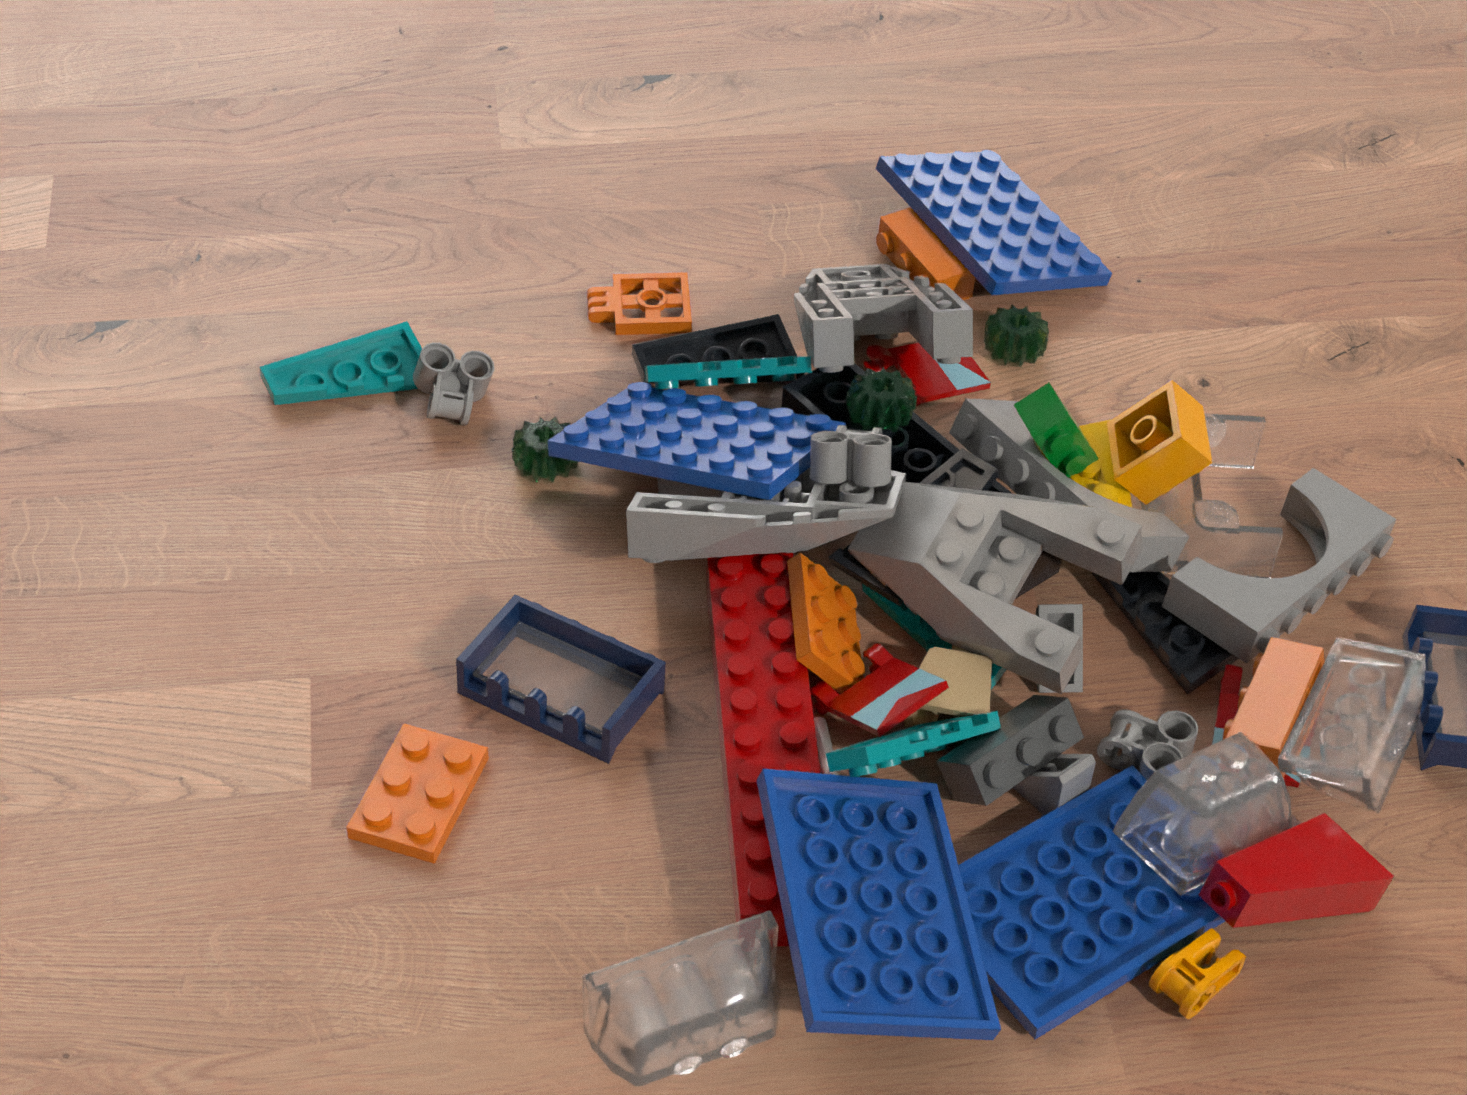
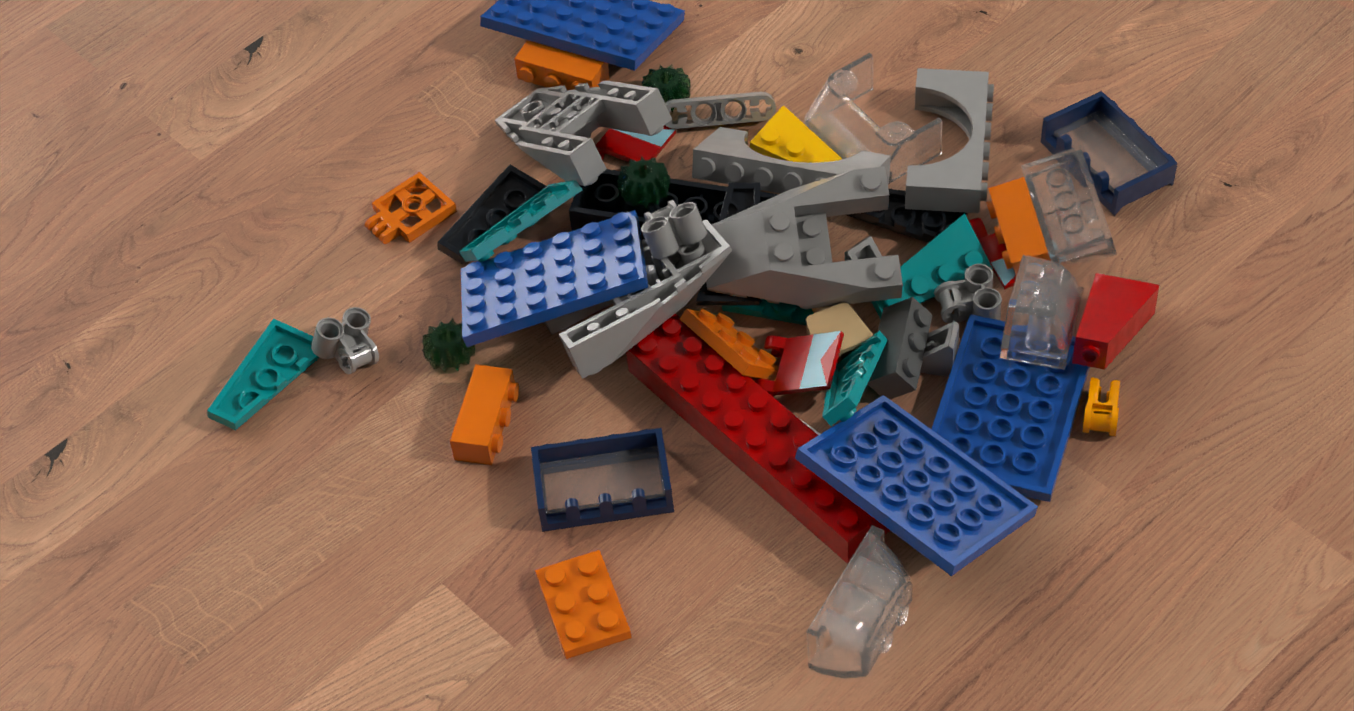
camera: 30 degrees left, 5 degrees up
(510, 536) = (484, 415): none -> orange brick
(1055, 377) = (718, 105): none -> light grey beam
(1056, 431) = (769, 136): green brick -> none
(1144, 685) = (939, 262): none -> teal wing
(1159, 442) = (829, 107): light orange brick -> none

